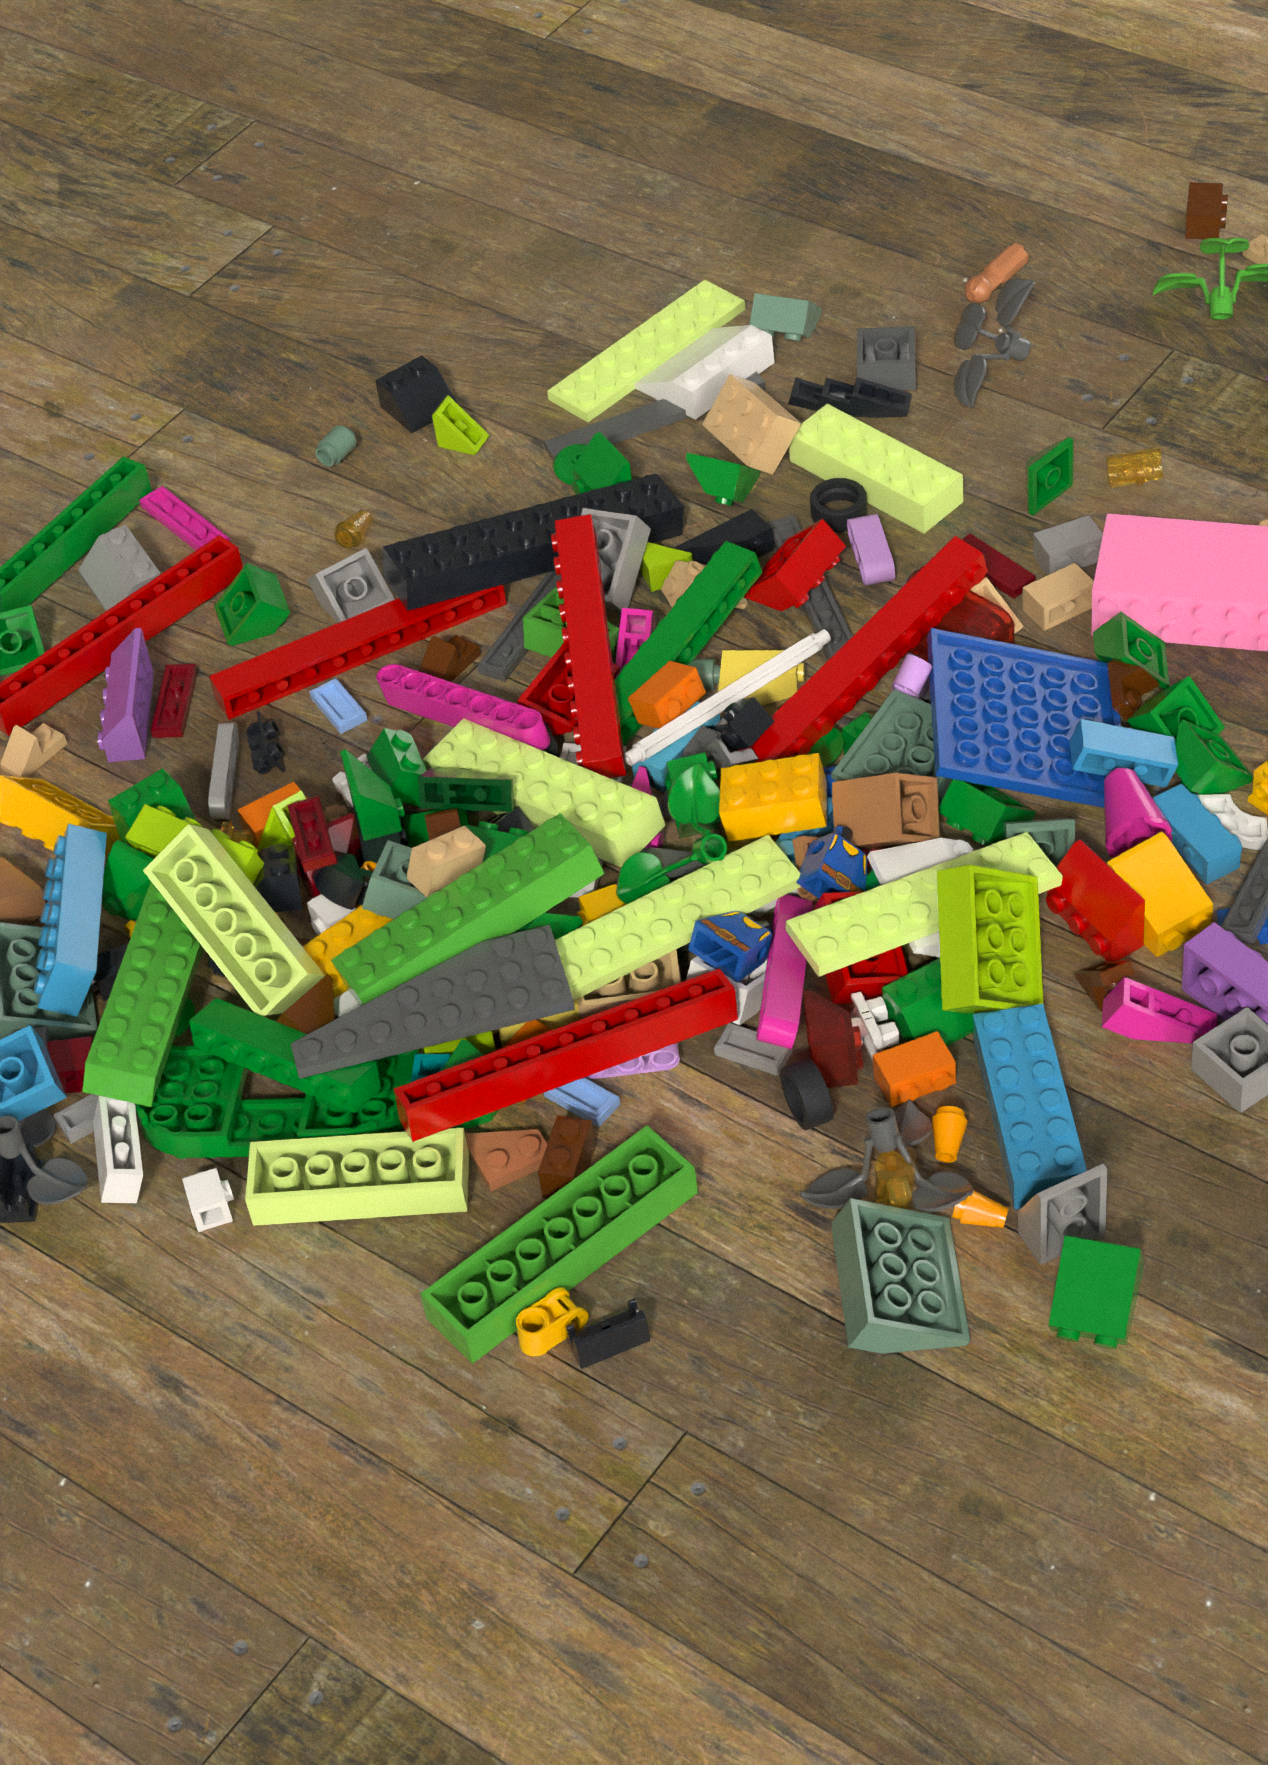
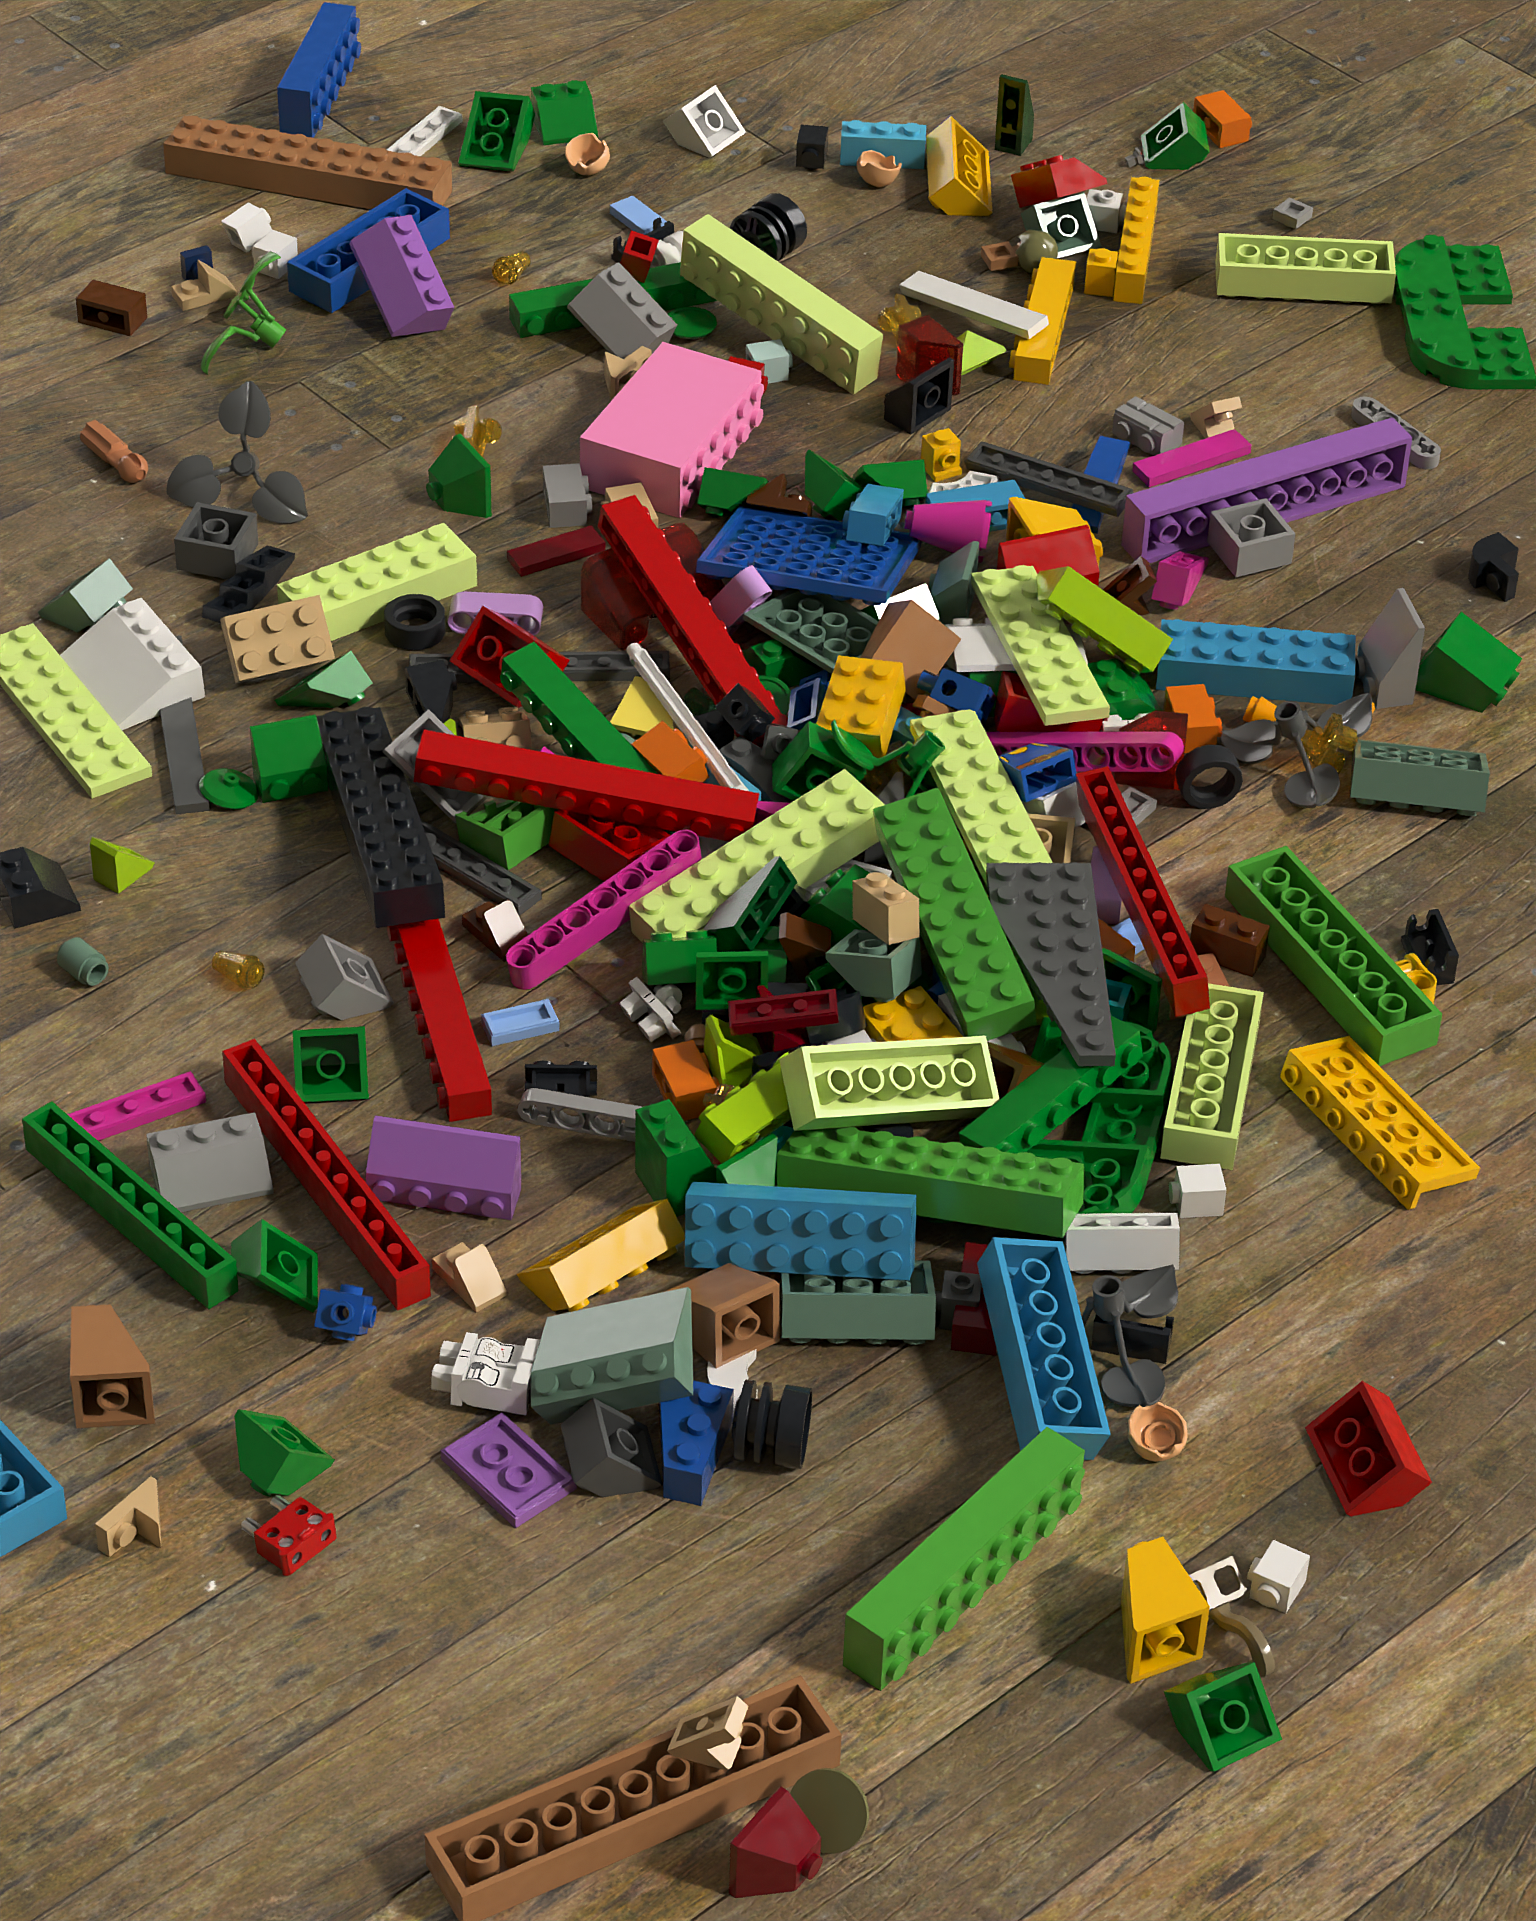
camera: 85 degrees left, 5 degrees down
(335, 1326) = (1376, 1119): none -> yellow bracket

